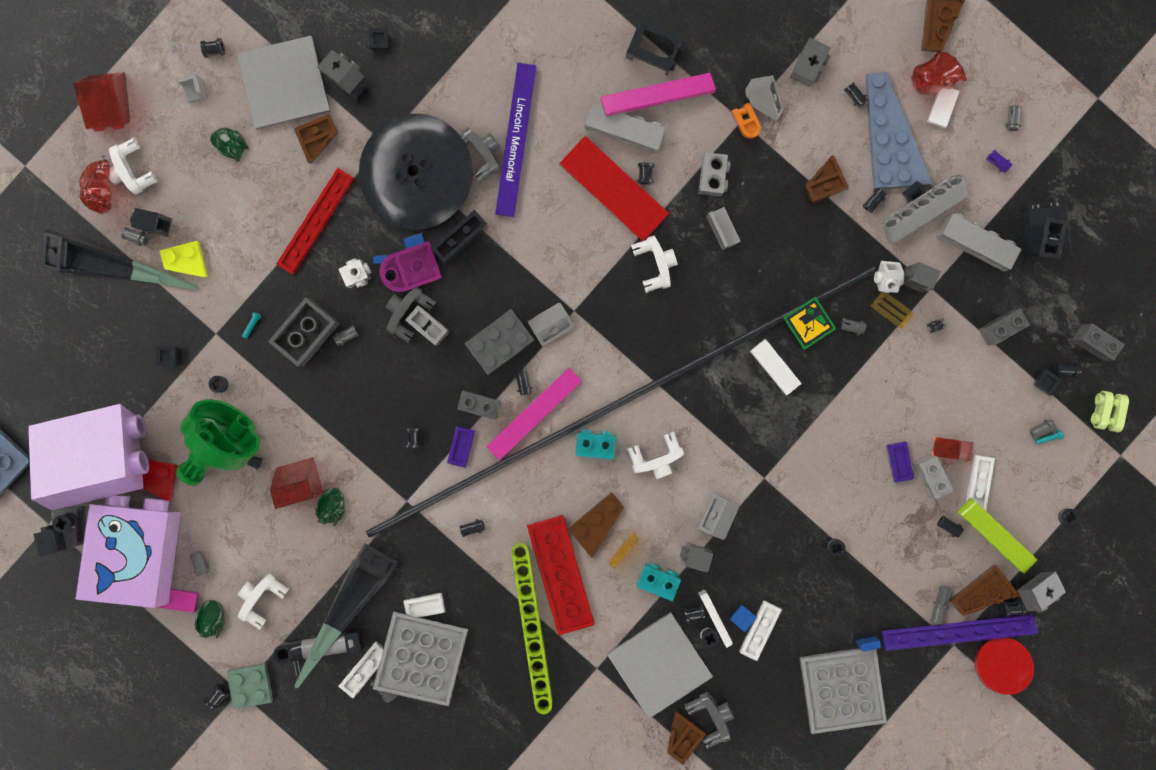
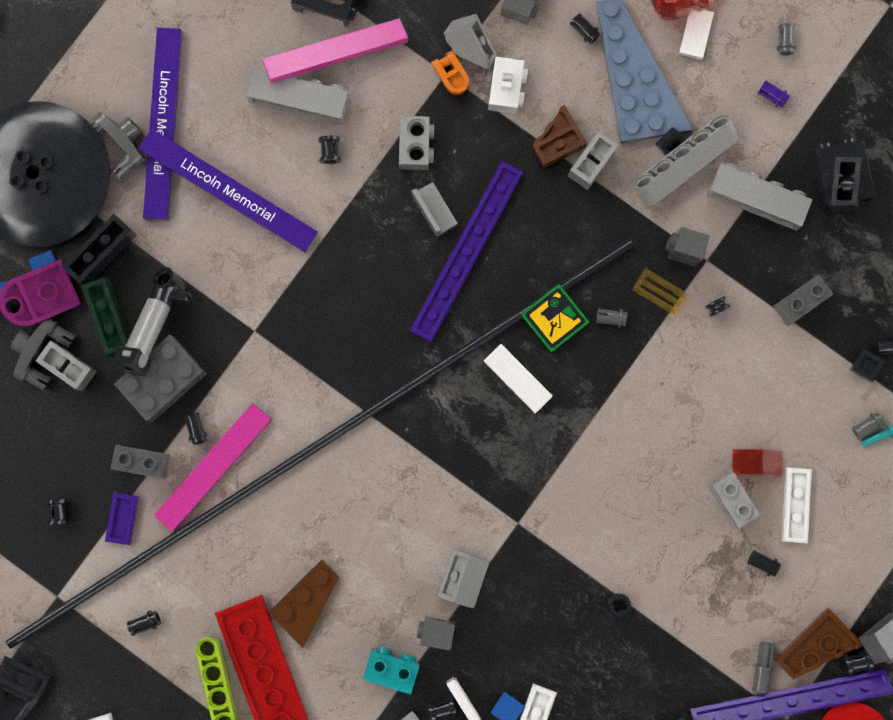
camera: 10 degrees left, 5 degrees down
(462, 290) = (106, 315): none -> clear green brick
(509, 274) = (166, 289): none -> piece
(551, 324) = (225, 350): light grey panel -> none
(563, 198) = (228, 190): none -> dark purple tile
(595, 445) = (294, 500): teal brick -> none
(613, 188) = (291, 172): red tile -> none
(623, 550) = (342, 633): clear yellow tile -> none
(659, 465) = (381, 517): white connector -> none
(664, 261) = (361, 255): white connector -> none
(745, 264) = (466, 251): none -> dark purple tile
(790, 134) = (506, 85): none -> white brick
(852, 201) = (593, 160): none -> light grey brick
(874, 200) = (622, 156): black pin -> none
(889, 277) = (649, 250): white brick -> none
(900, 461) = (690, 485): dark purple tile -> none
(997, 535) = (824, 569): lime beam -> none

